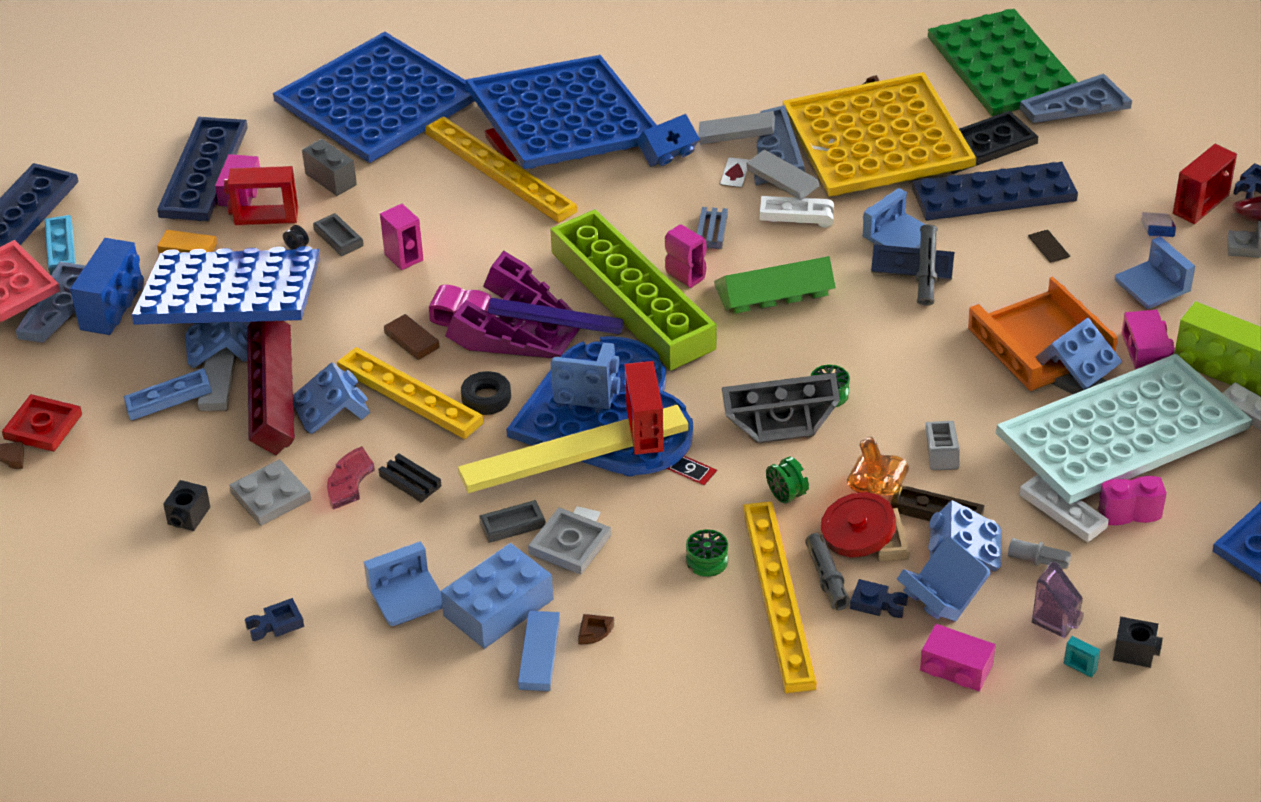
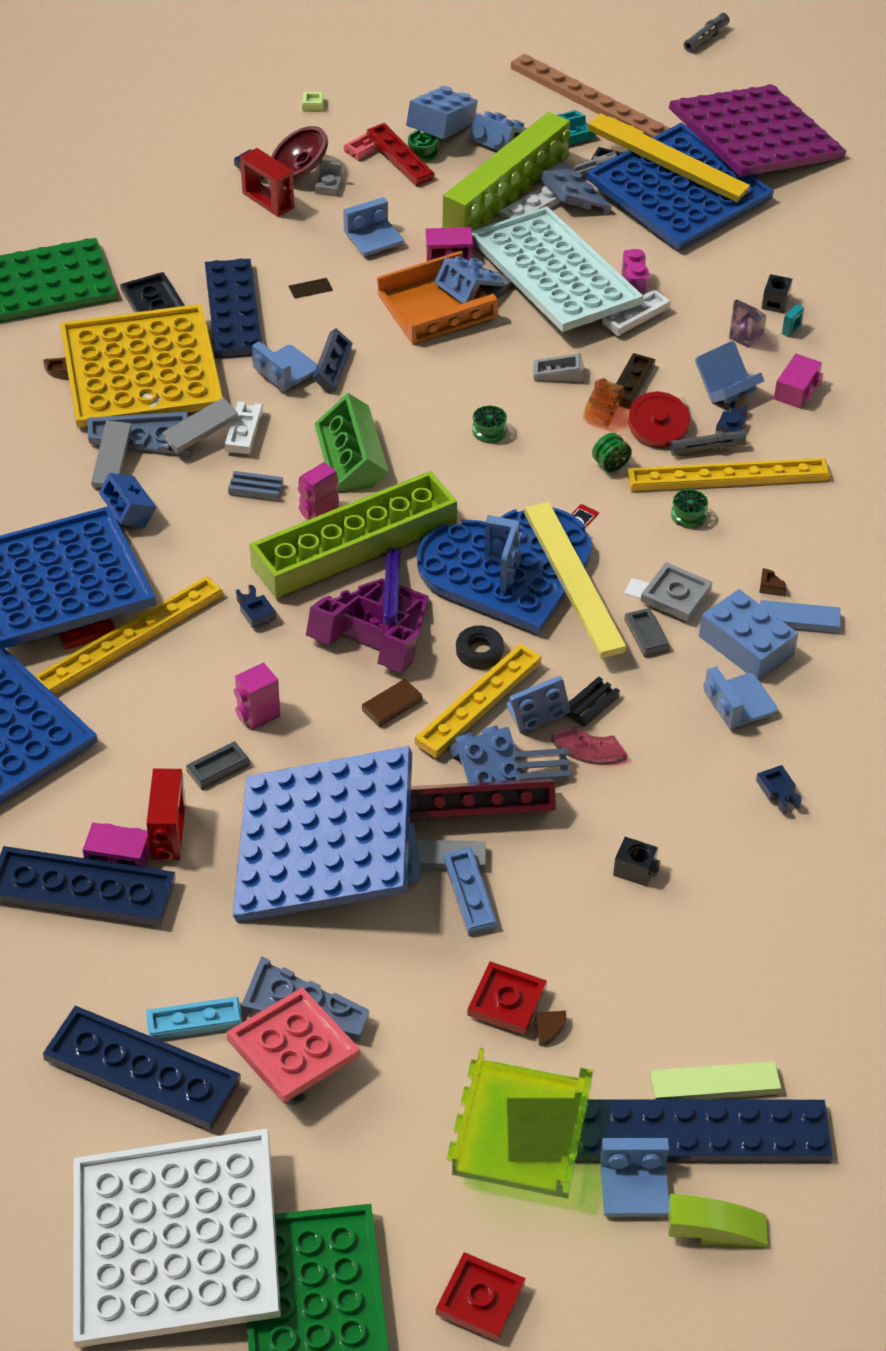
camera: 90 degrees left, 5 degrees up
(107, 286) = (307, 943): blue brick -> none
(186, 241) = (215, 896): light orange tile -> none
(270, 492) = (608, 804): light grey plate -> none
(295, 237) = (227, 794): black bush -> none
(307, 417) = (563, 762): none -> sand blue tile
(329, 167) = (111, 767): dark grey brick -> none
(392, 431) = (539, 704): none -> medium blue bracket
(449, 299) = (358, 661): dark pink brick -> none
(532, 238) = (255, 609): none -> dark blue plate
(644, 407) = (555, 494): red window -> none
(734, 172) = (167, 468): white sticker -> none
(781, 407) = (519, 445): flat silver wedge -> none
(927, 276) = (346, 344): dark grey pin -> none
(970, 530) = (672, 368): medium blue bracket -> none
(1038, 553) = (686, 331): light grey axle -> none
(1078, 99) = (116, 242): sand blue wing -> none
(1158, 224) = (314, 214): tile -> none

